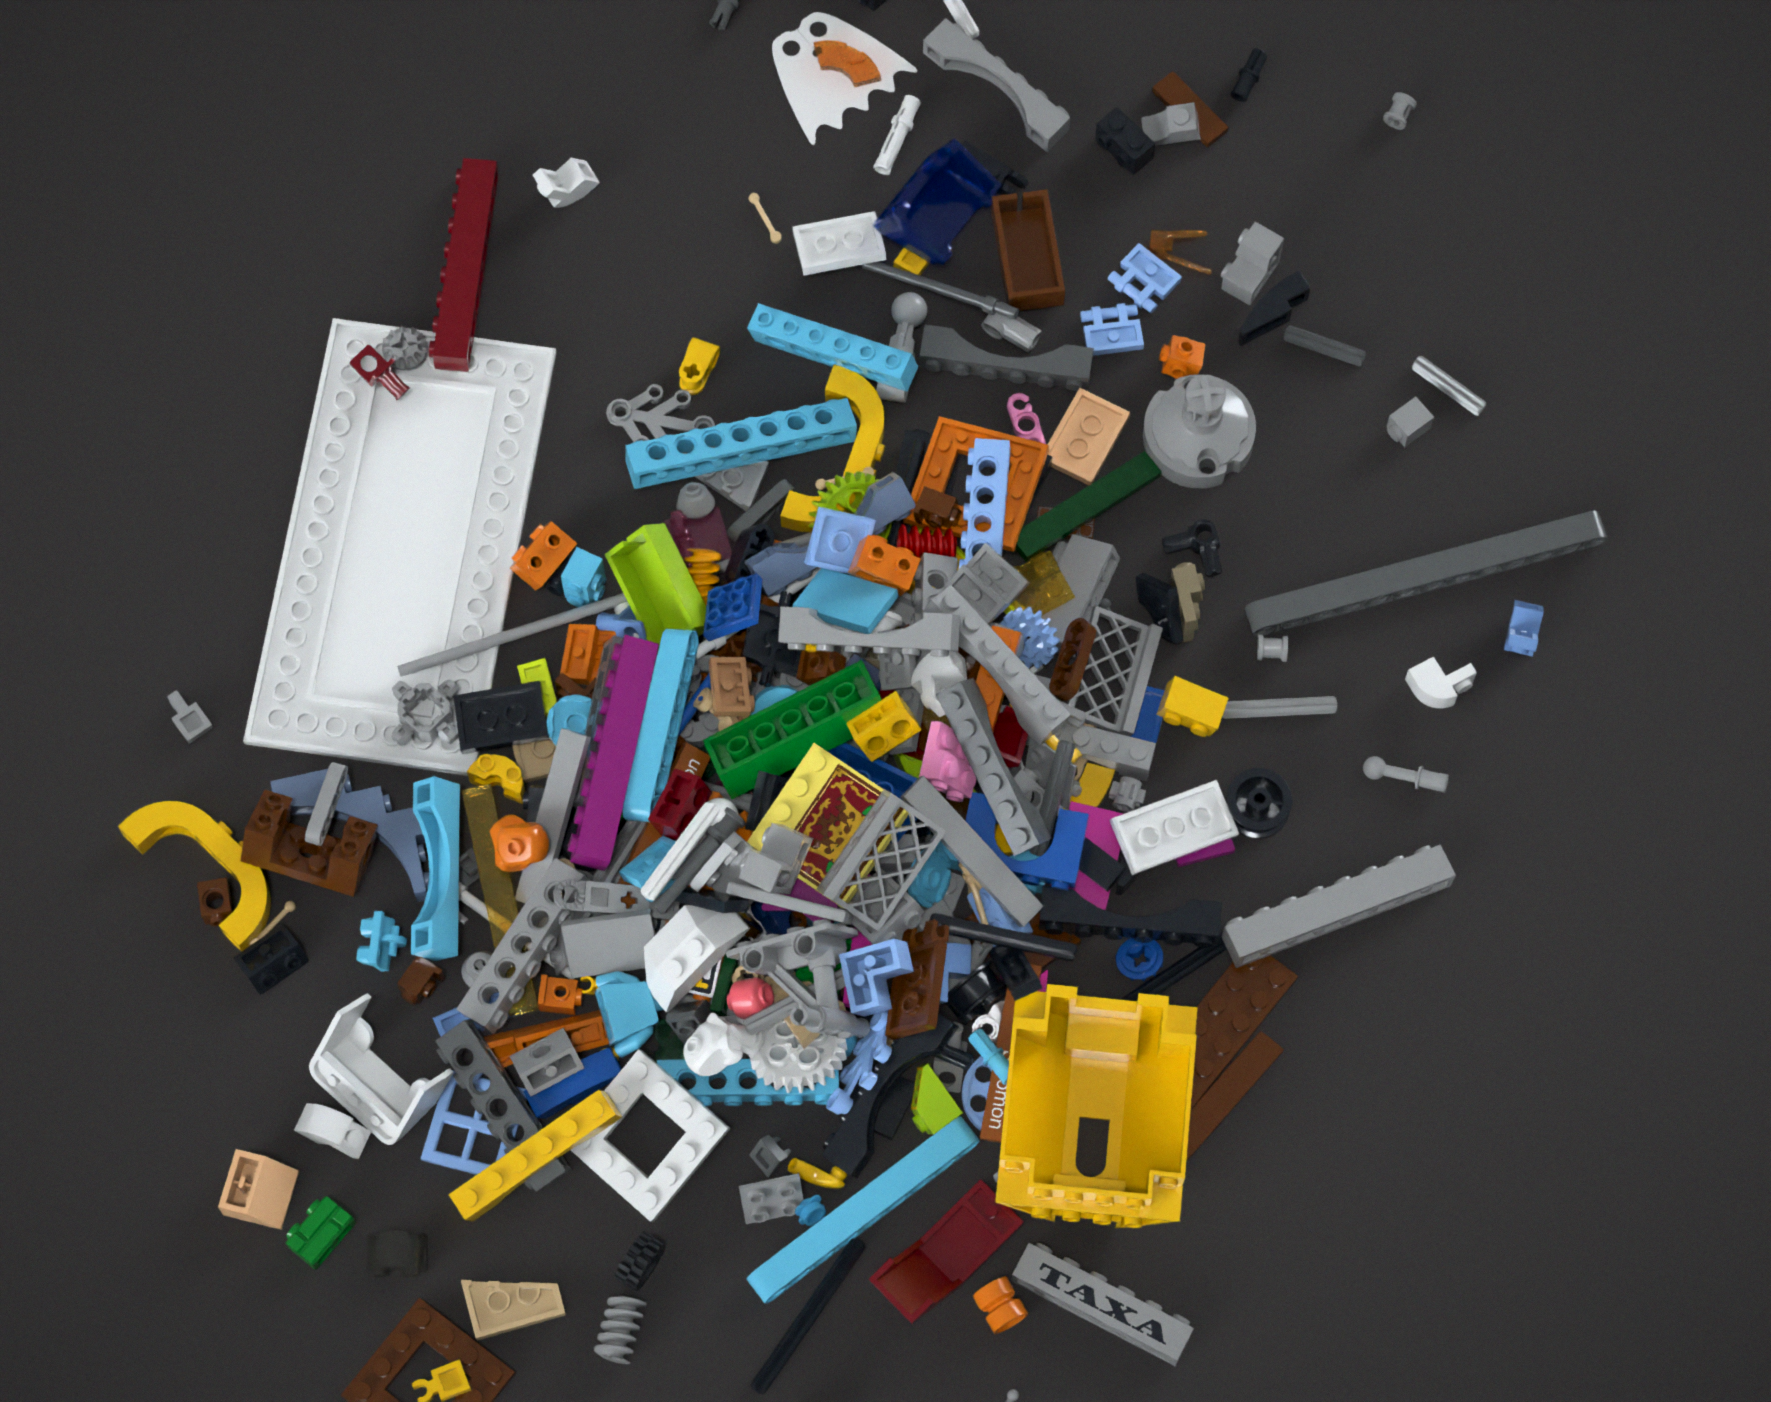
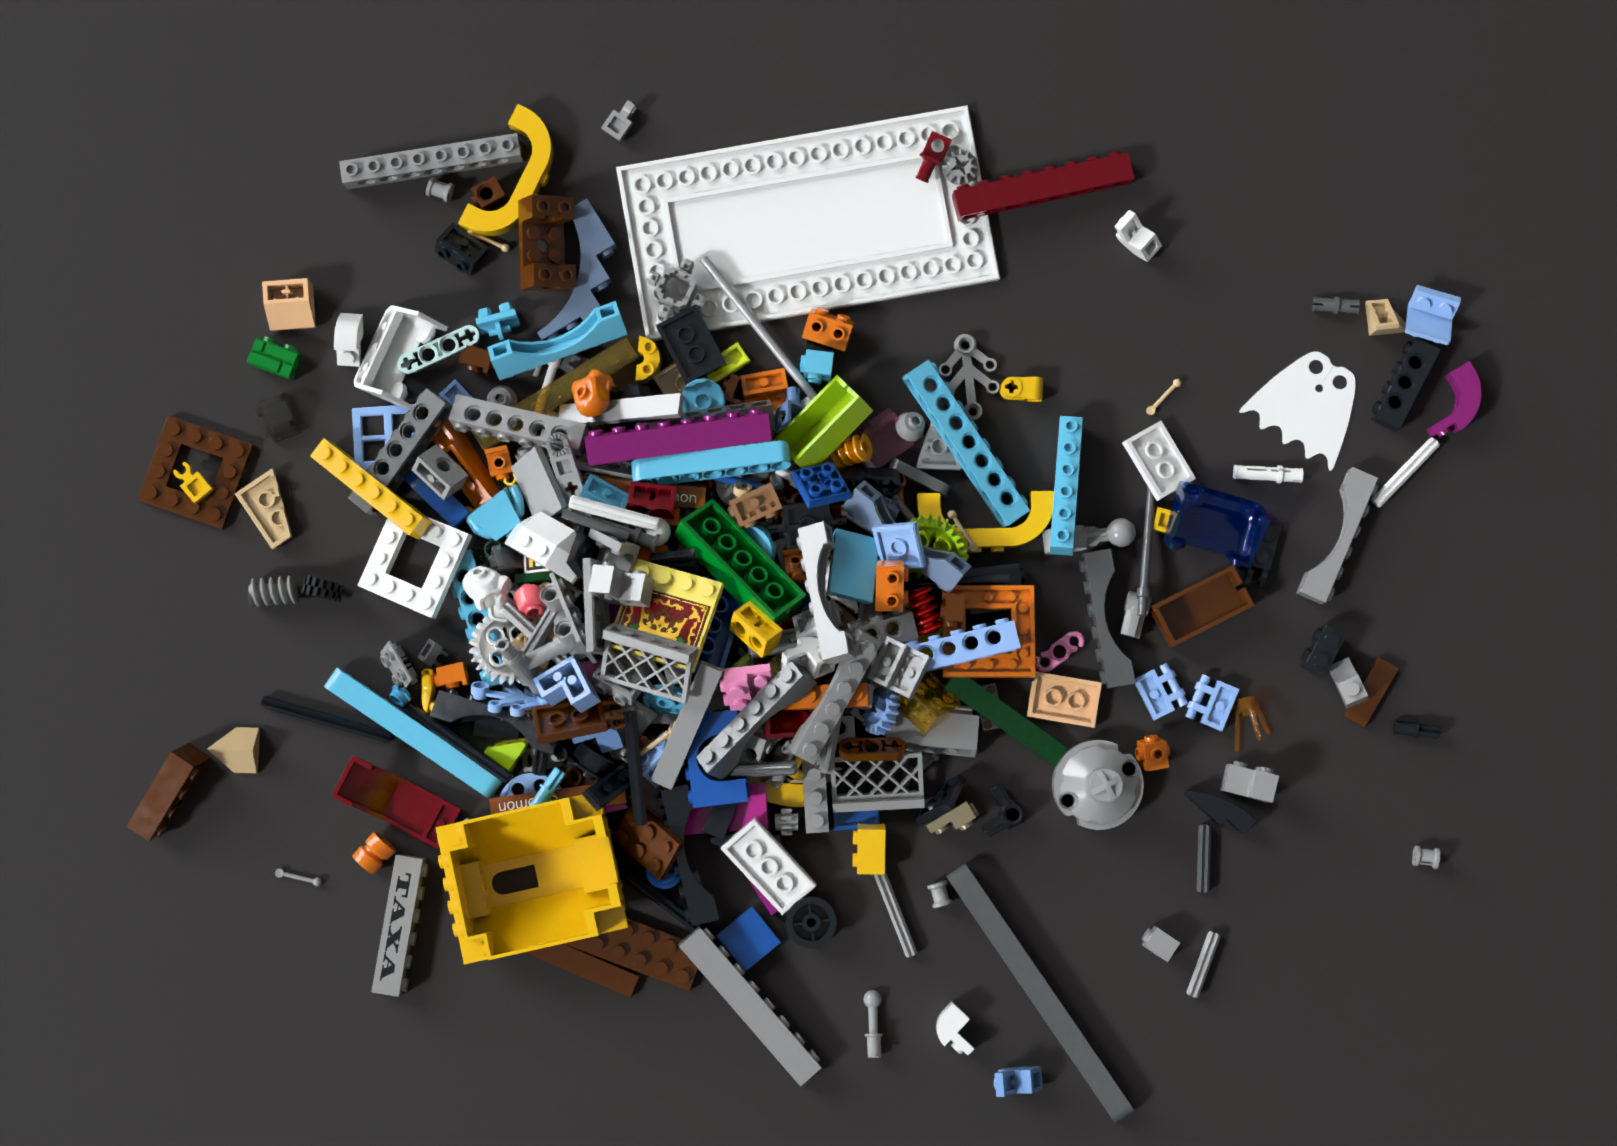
camera: 75 degrees right, 15 degrees up
(145, 957) = (431, 161): none -> light grey brick
(185, 959) = (440, 189): none -> light grey bush
(326, 804) = (579, 244): light grey beam -> none
(386, 1026) = (437, 346): none -> light aqua beam
(808, 1138) = (452, 675): none -> orange brick
(847, 60) = (1319, 414): clear orange tile -> none
(898, 1149) = (458, 742): none -> black axle
(1102, 957) = (649, 844): none -> reddish brown plate
(1254, 883) = (748, 938): none -> blue tile

